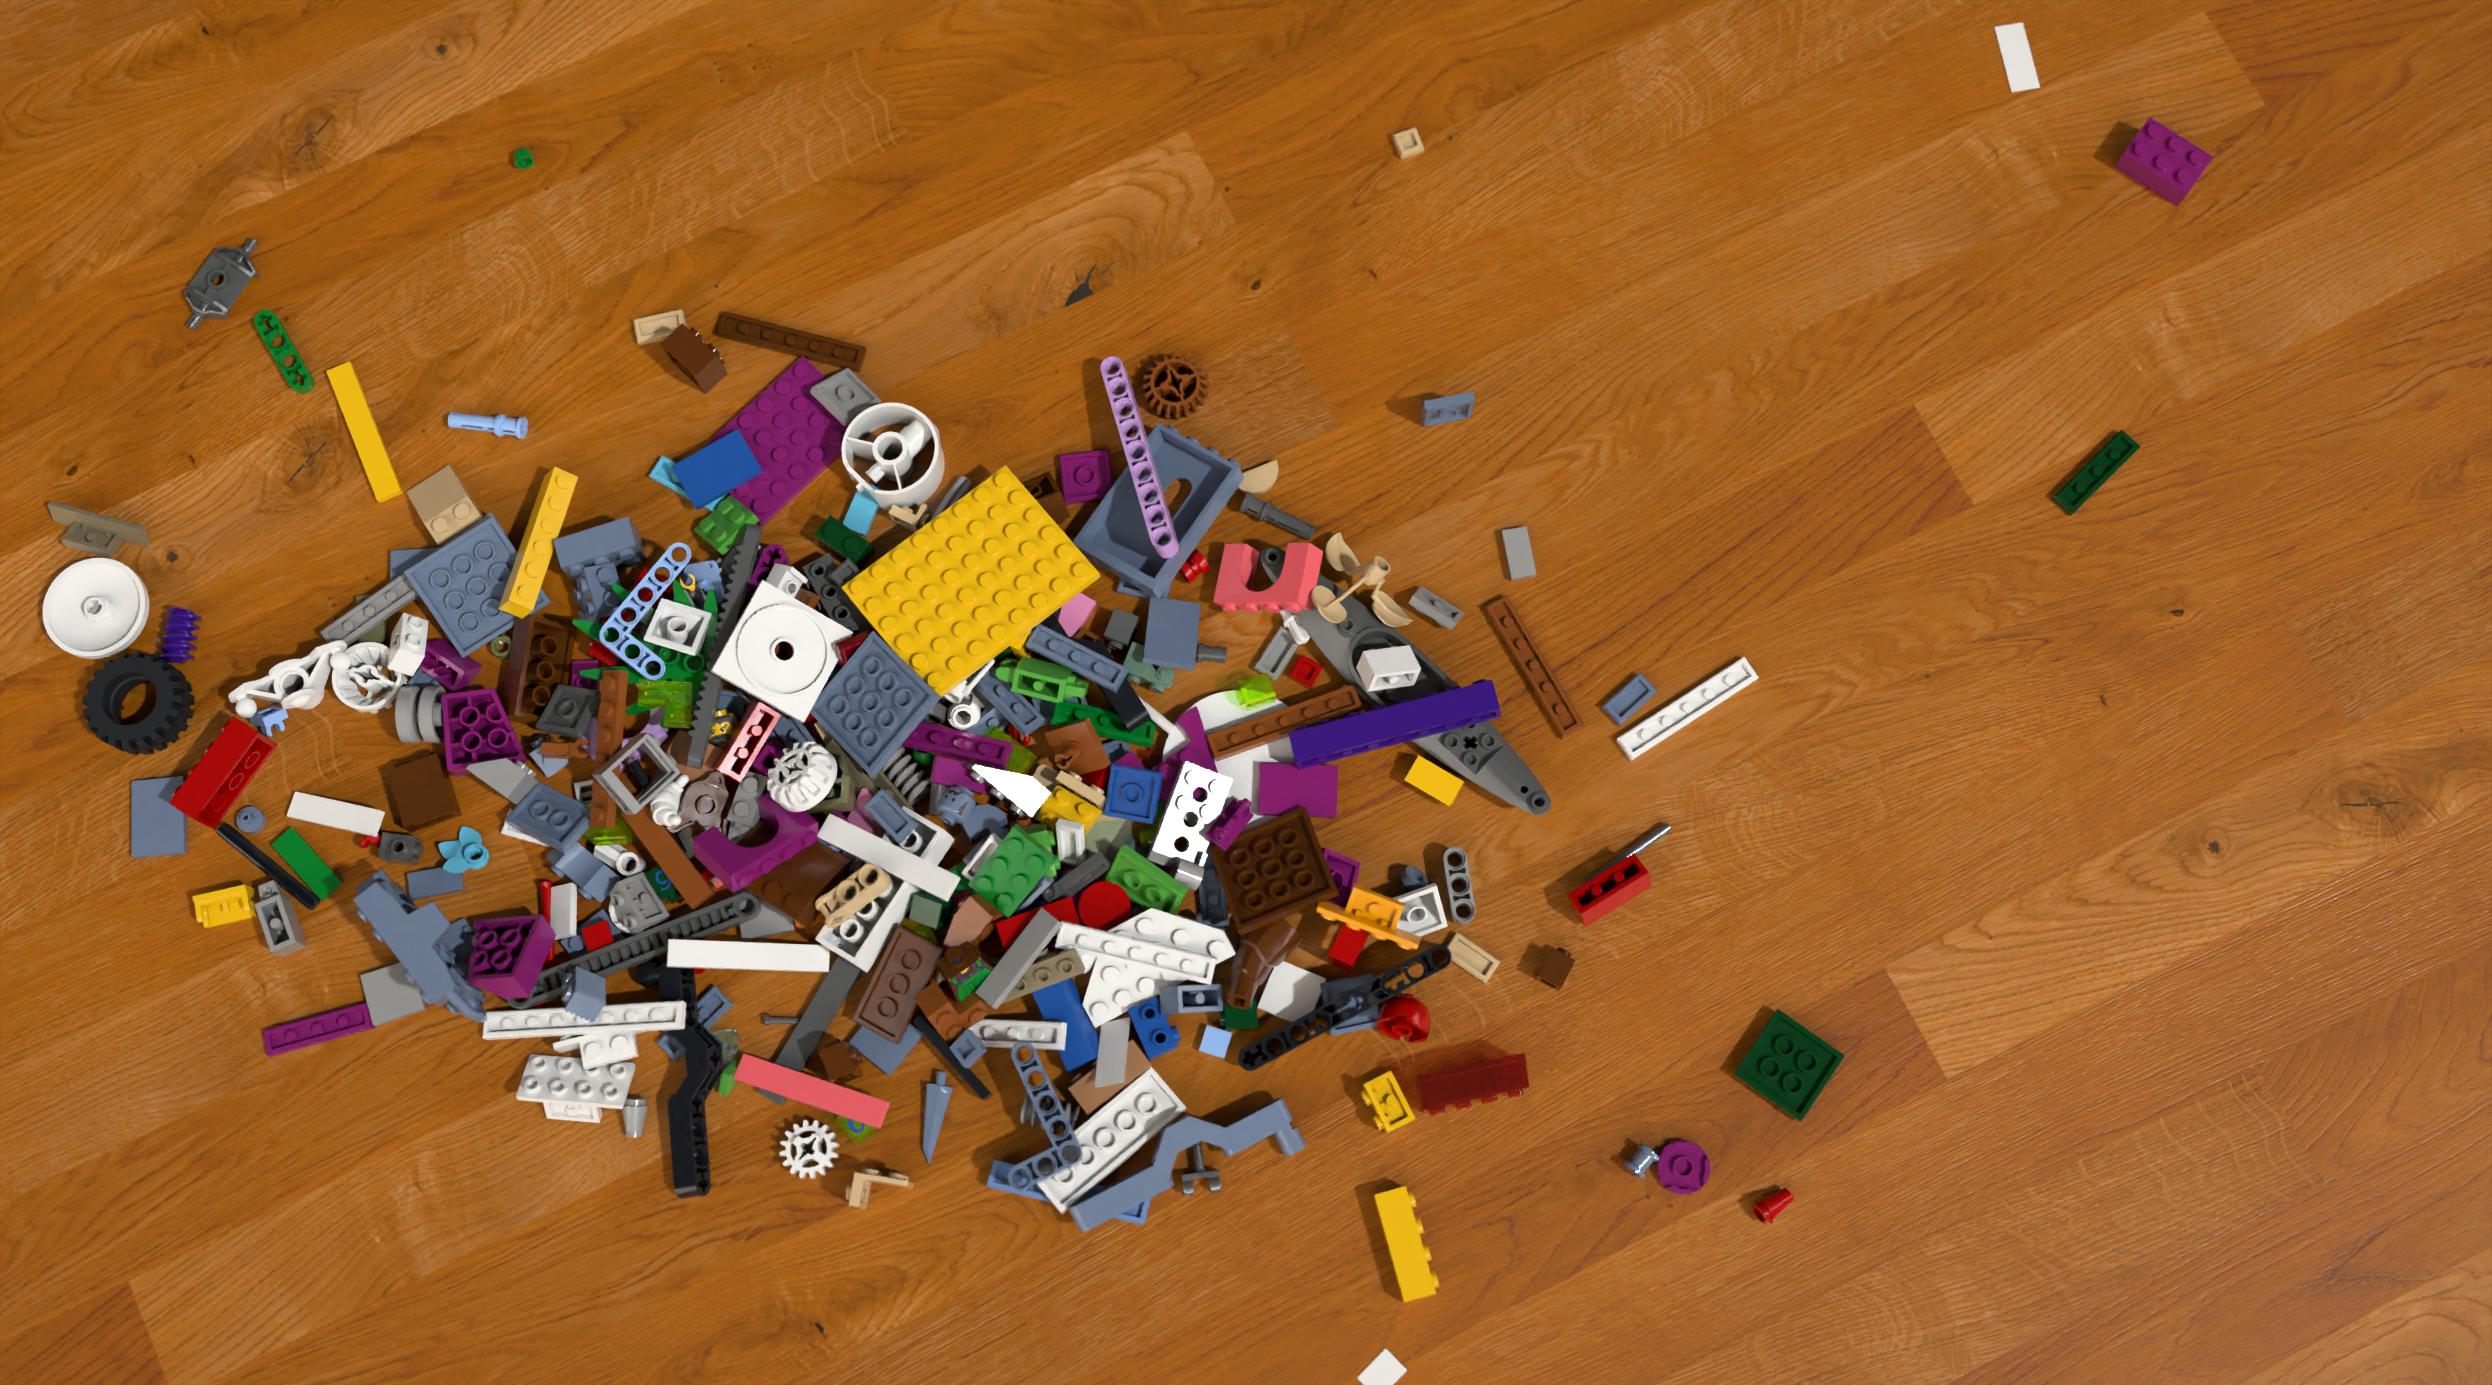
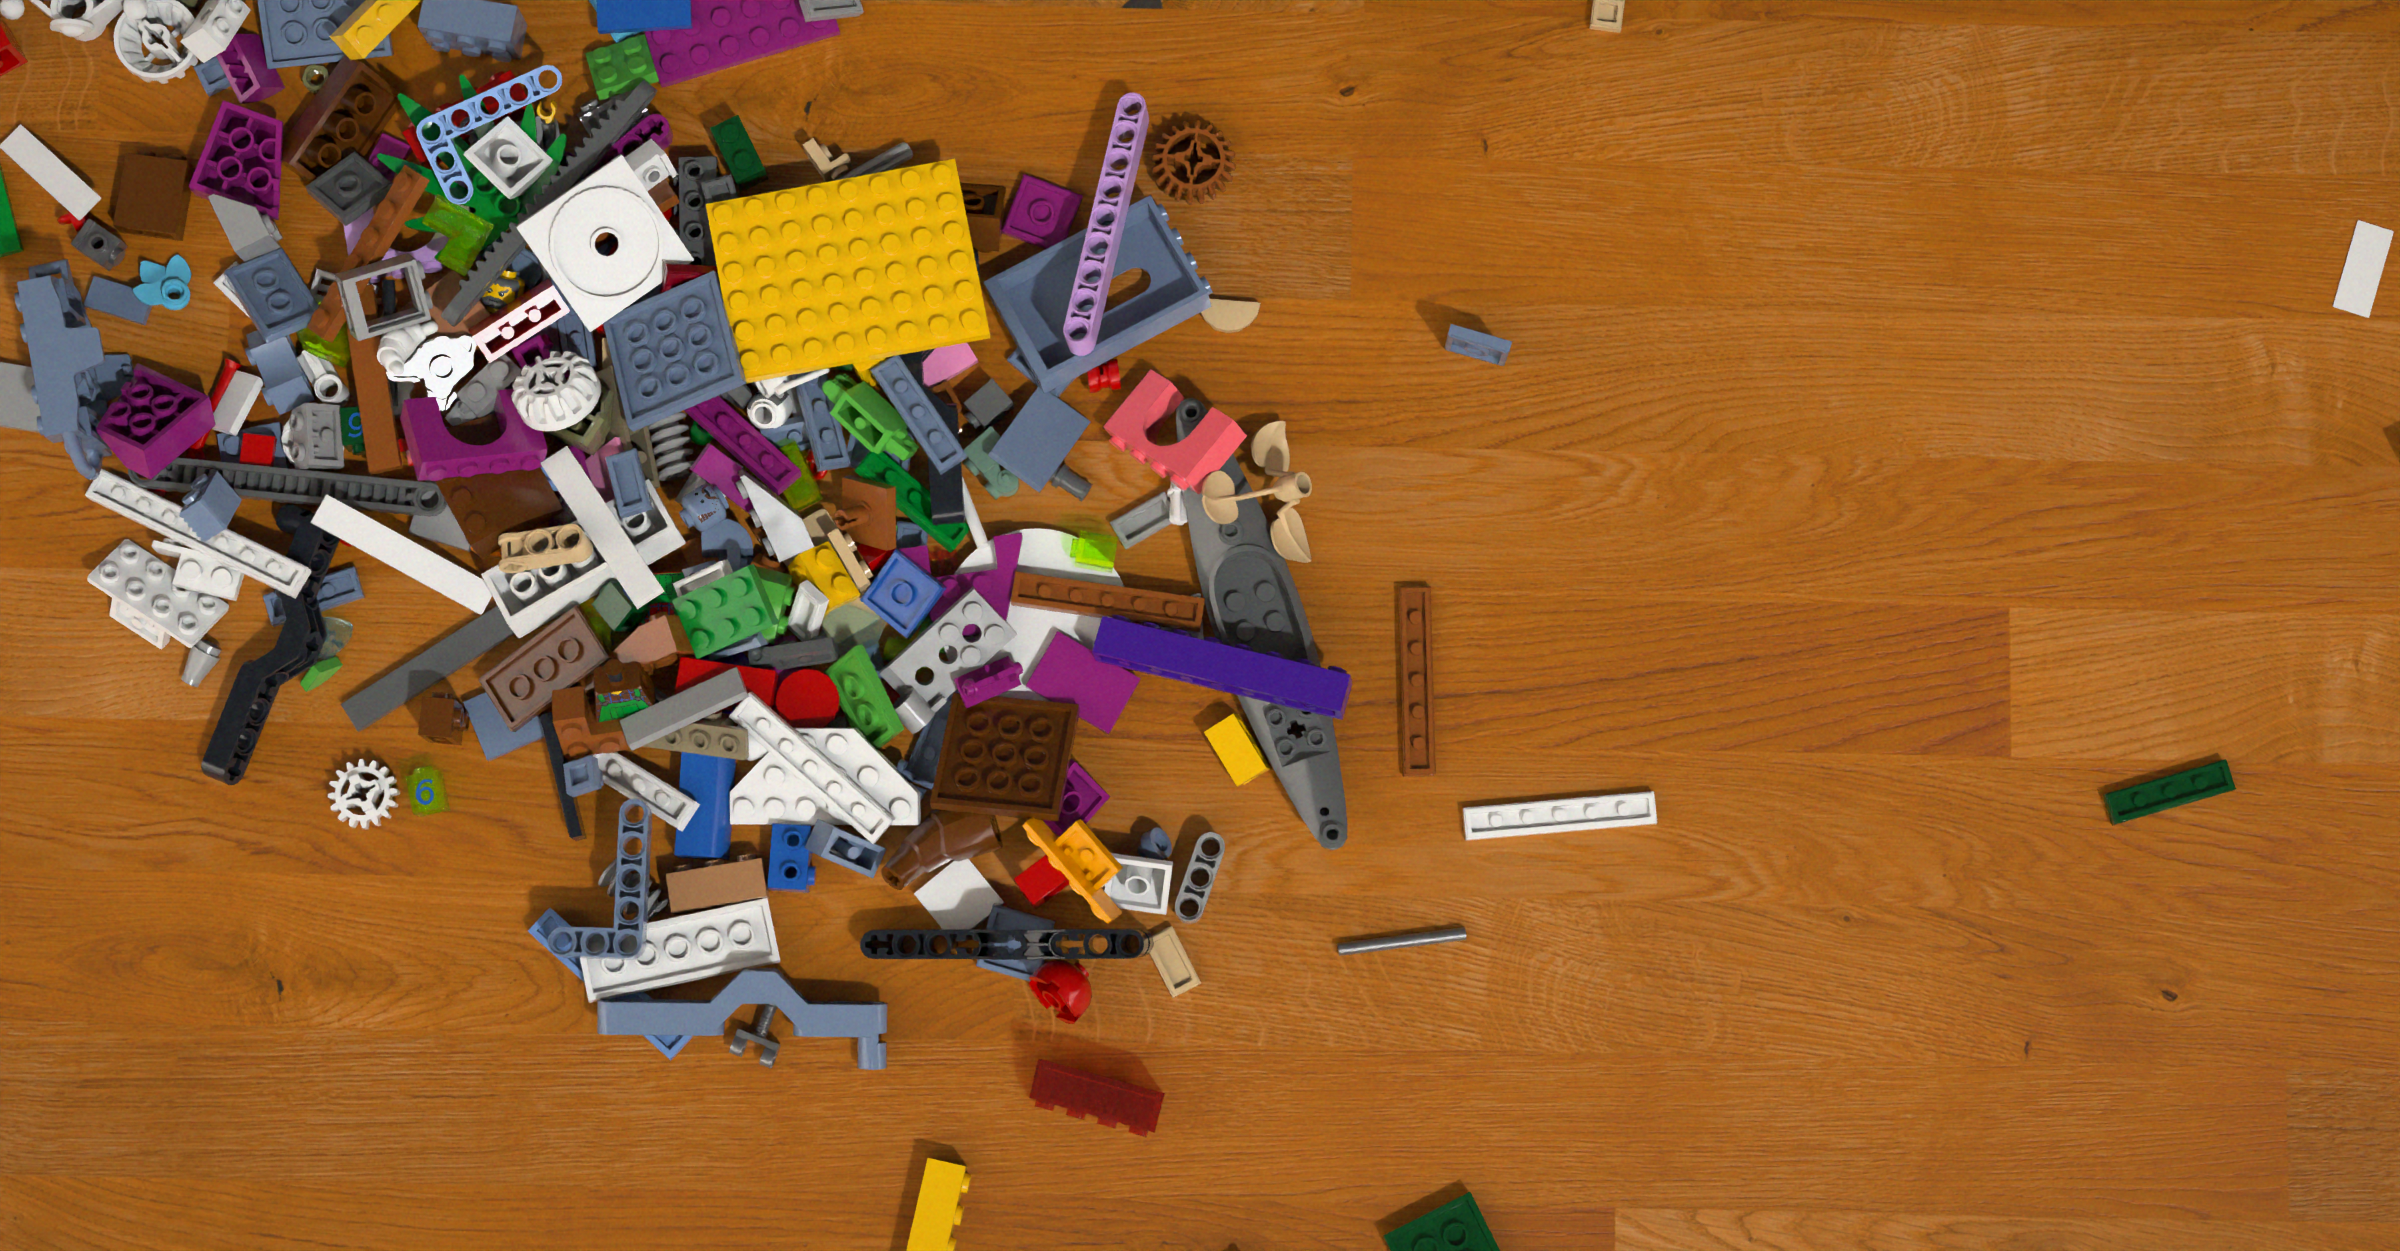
camera: 25 degrees right, 5 degrees up
(268, 717) = (32, 28): light blue tile -> none
(420, 714) = (190, 109): light grey wheel -> none
(547, 765) = (304, 223): sand blue bracket -> none
(560, 750) = (317, 225): dark orange plate -> none
(596, 592) = (441, 72): sand blue bracket -> none
(706, 578) = (570, 117): light blue piece -> none
(780, 1020) = (392, 633): dark grey piece -> none
(811, 1091) = (396, 734): coral tile -> none
(859, 1190) = (391, 866): tan bracket -> none
(862, 512) = (780, 124): medium azure tile -> none
(906, 442) = (867, 77): white animal -> none
(935, 1107) = (520, 817): sand blue bar -> none
(1112, 1052) = (732, 860): white sticker -> none
(1215, 1042) = (850, 907): light blue tile -> none
(1239, 1019) = (887, 897): dark green brick -> none
(1267, 512) = (1217, 356): dark grey pin -> none
(1305, 671) = (1164, 556): red tile -> none
(1388, 668) = (1250, 601): white brick -> none
(1388, 1102) = (996, 1068): yellow bracket -> none
(1436, 608) = (1344, 561): light grey plate -> none
(1518, 553) = (1470, 546): light grey tile -> none
(1555, 968) = (1256, 1021): reddish brown brick -> none
(1609, 890) = (1359, 968): red brick -> none
(1629, 699) = (1501, 772): sand blue tile -> none

